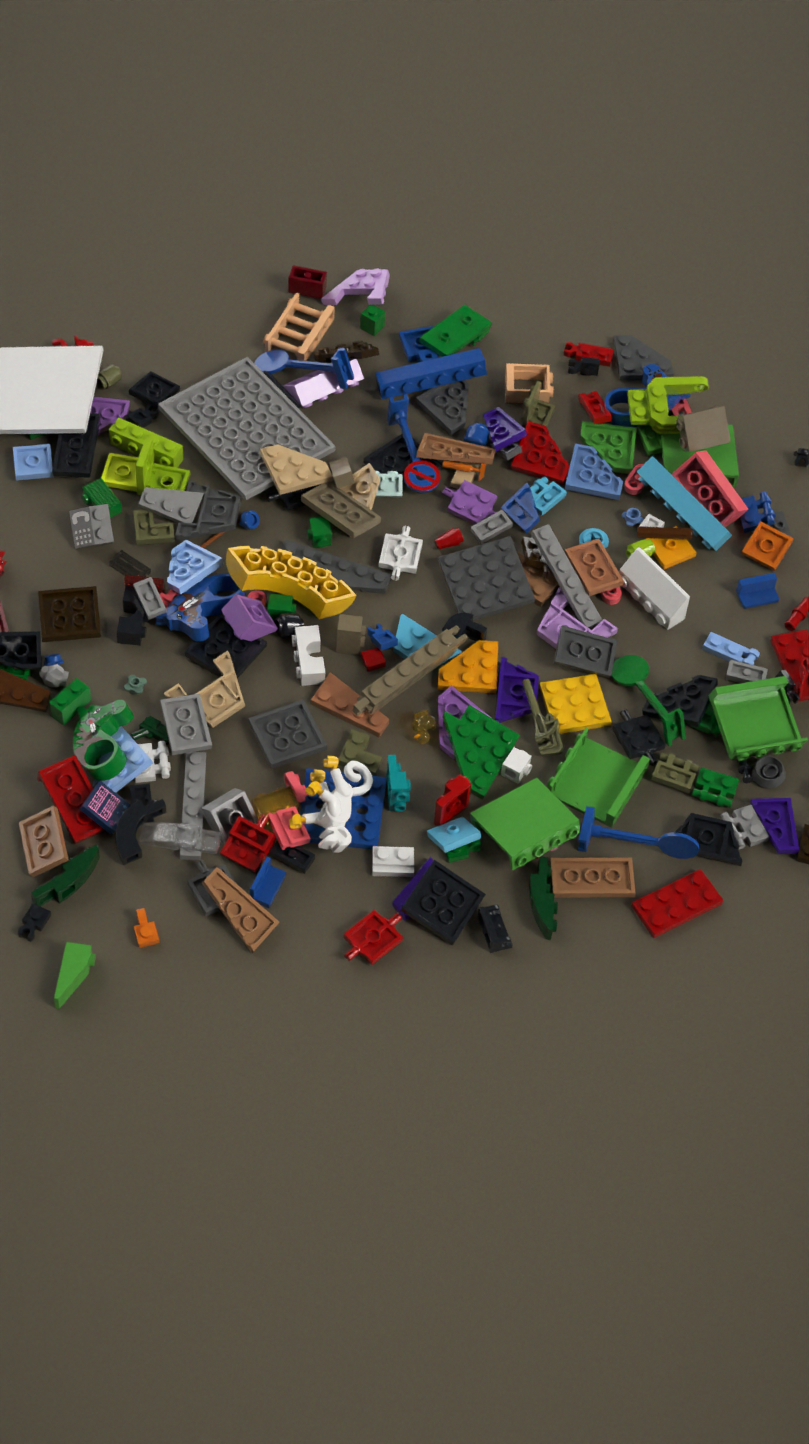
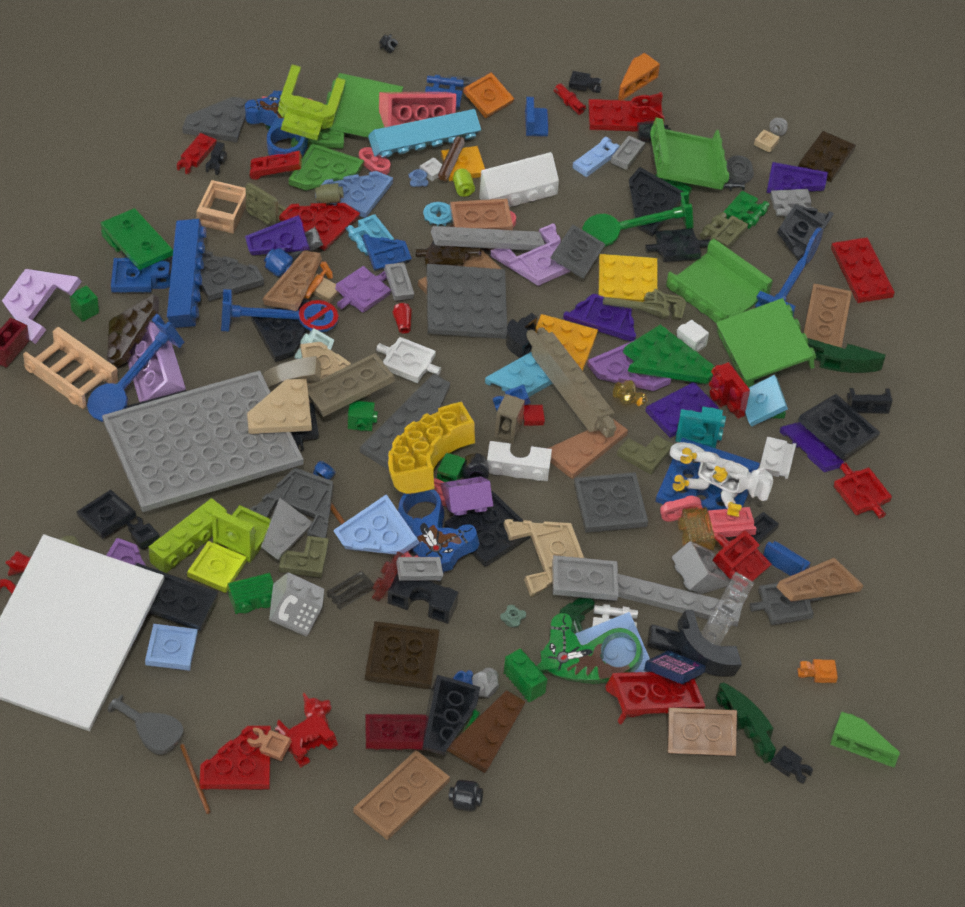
camera: 75 degrees left, 5 degrees down
(425, 773) = (668, 409): none -> dark purple plate
(570, 449) = (329, 193): none -> olive brick
(703, 428) = (355, 86): dark tan panel -> none

